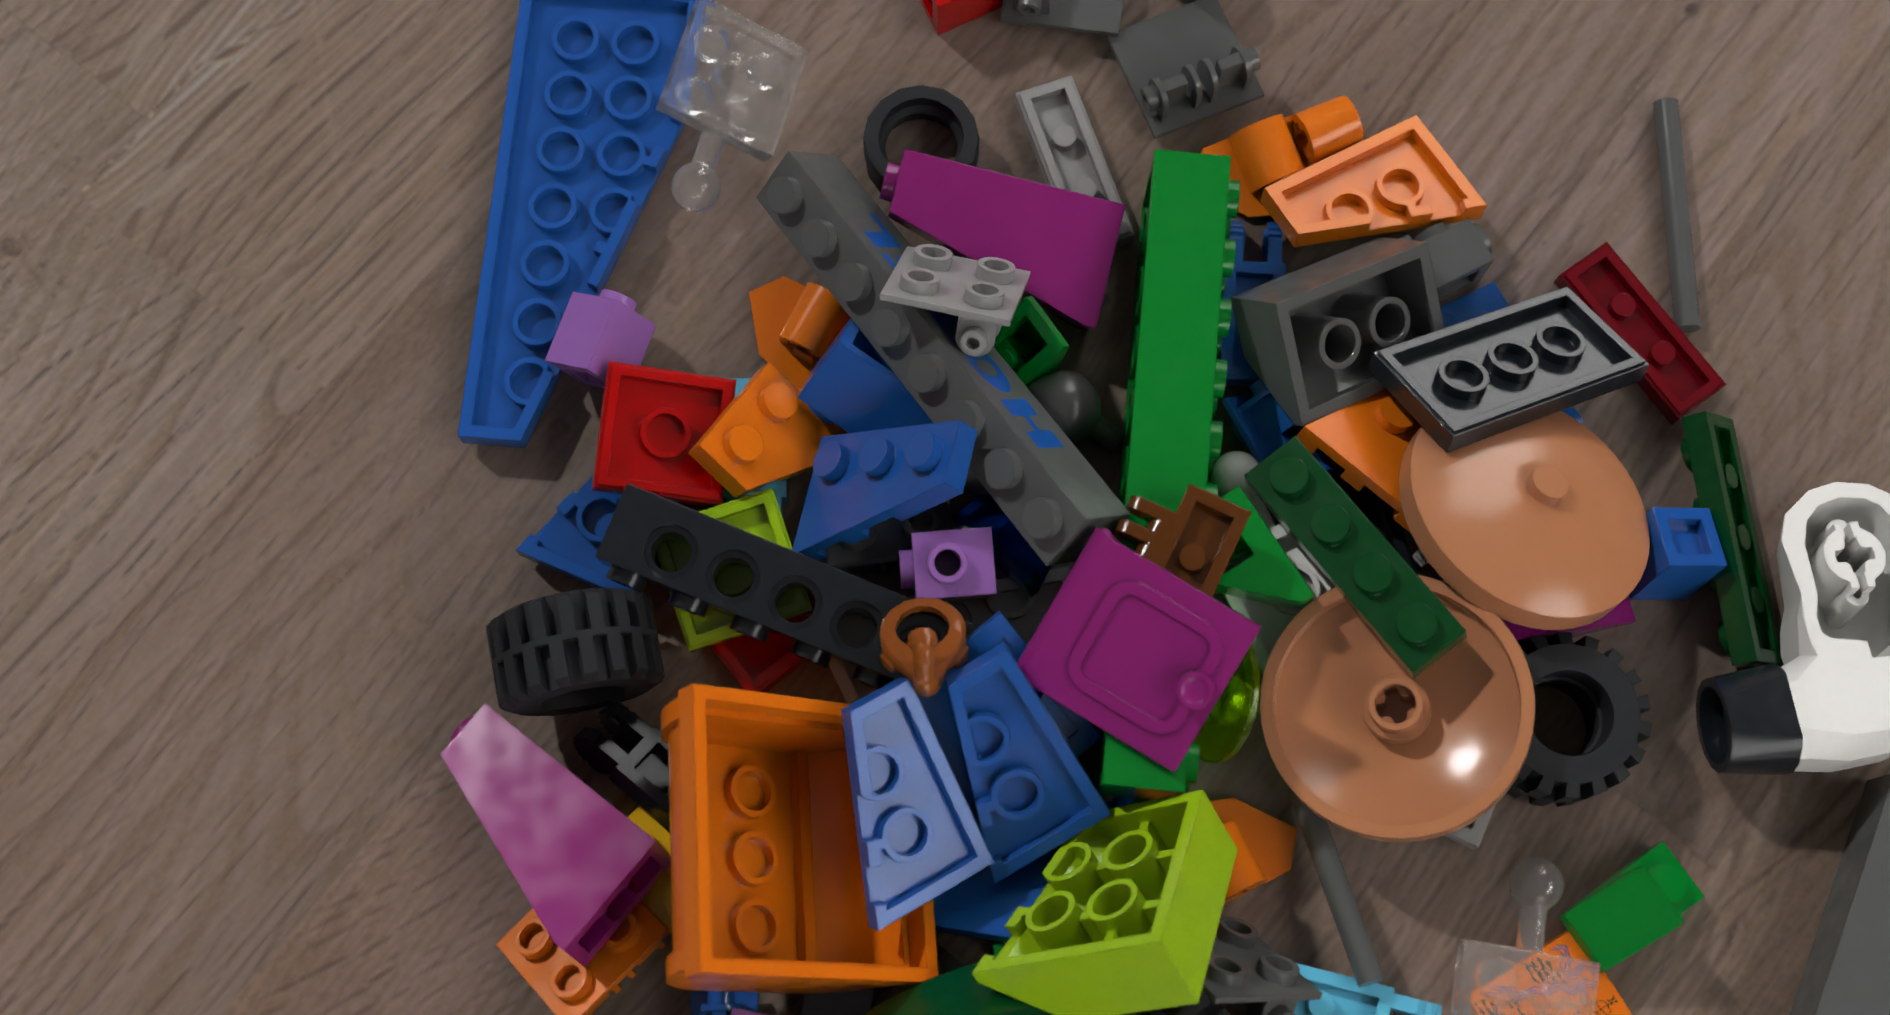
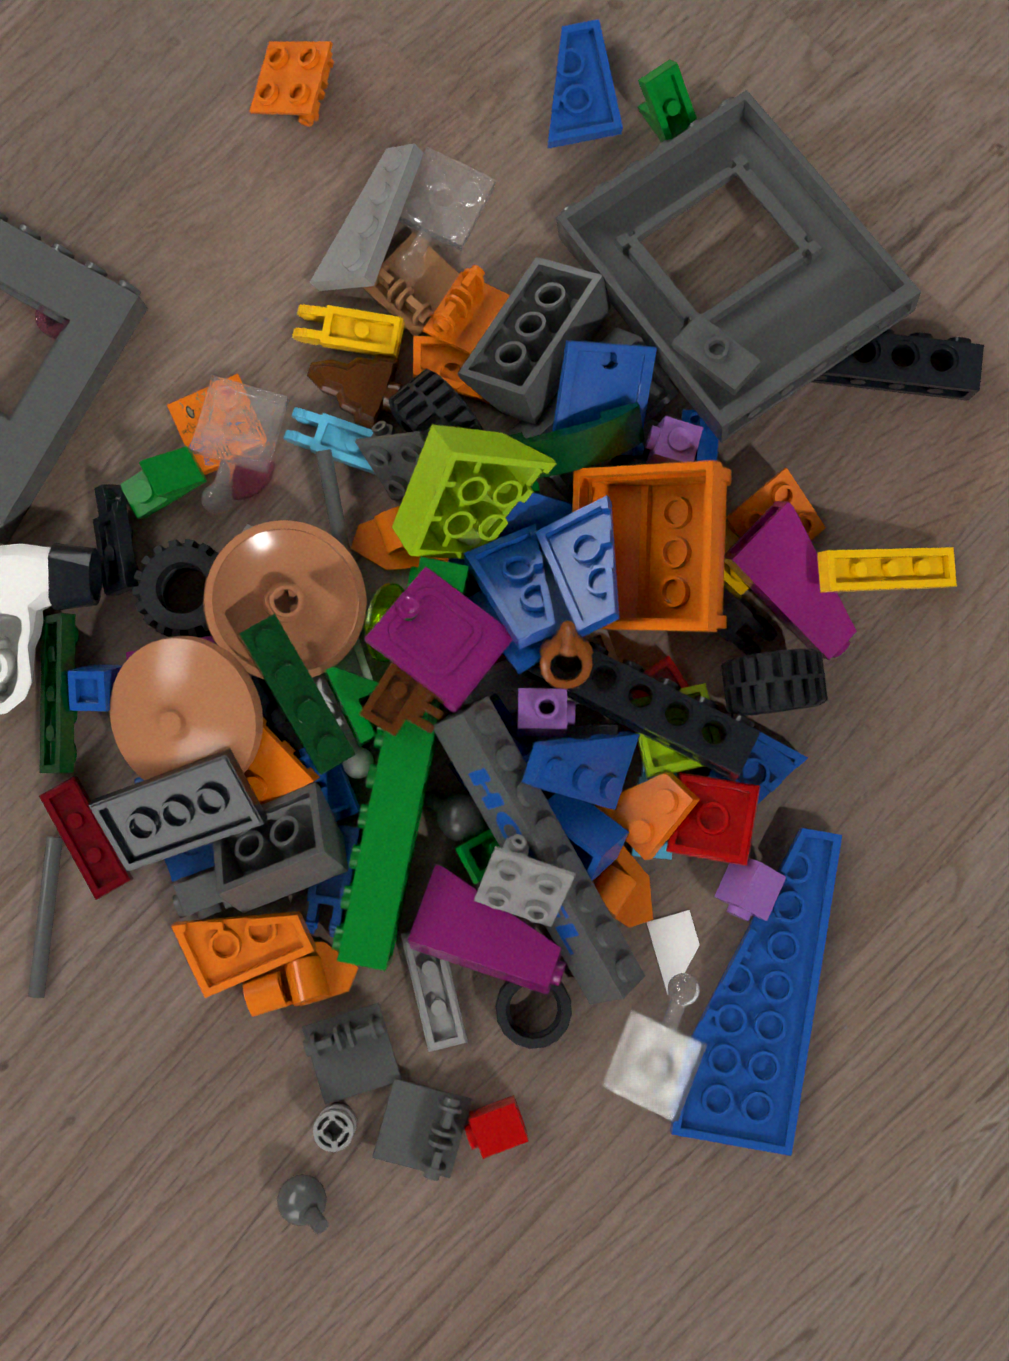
camera: 175 degrees left, 10 degrees up
(391, 862) = (886, 569): none -> yellow plate
(713, 261) = (673, 943): none -> white sticker
(1486, 922) = (250, 482): none -> clear pink tile
(1693, 801) = (114, 540): none -> black hinge

